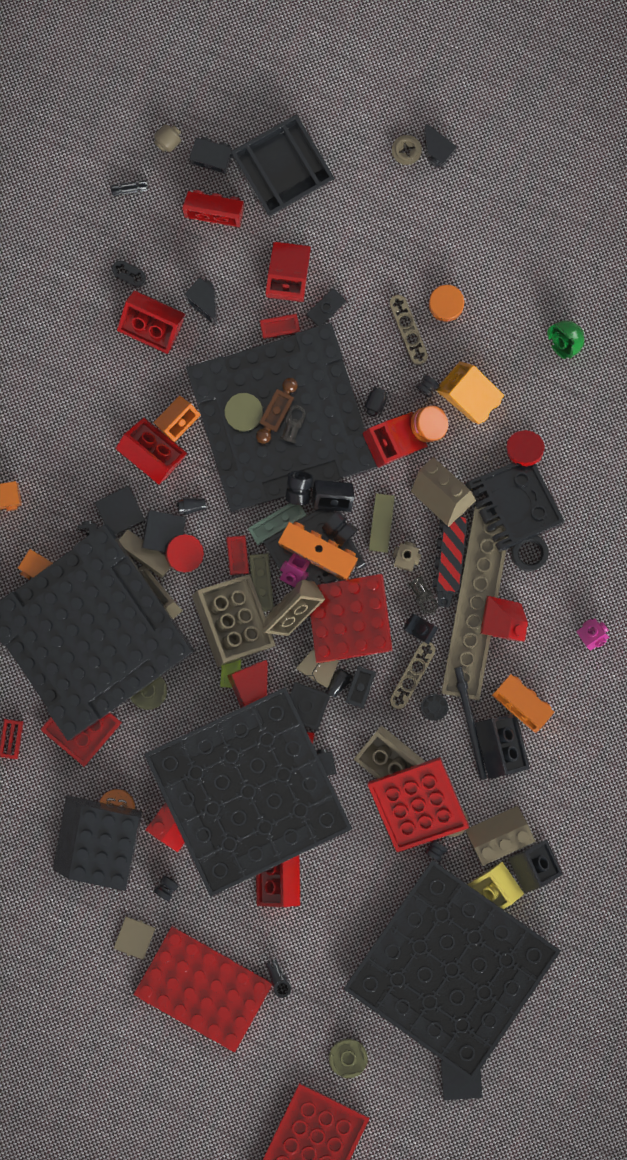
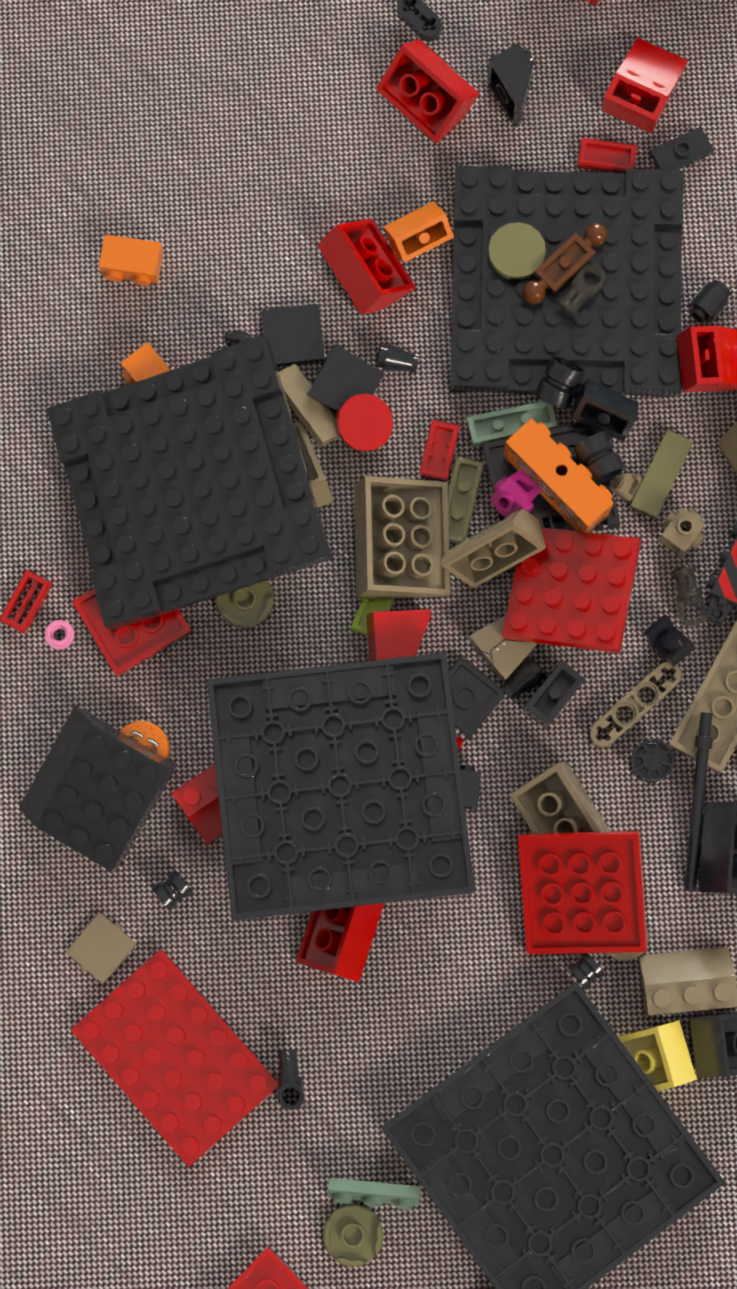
camera: 20 degrees right, 5 degrees down
(33, 752) = (56, 626): none -> bright pink plate
(352, 1029) = (374, 1193): none -> sand green plate
(362, 538) = (626, 486): none -> dark tan tile

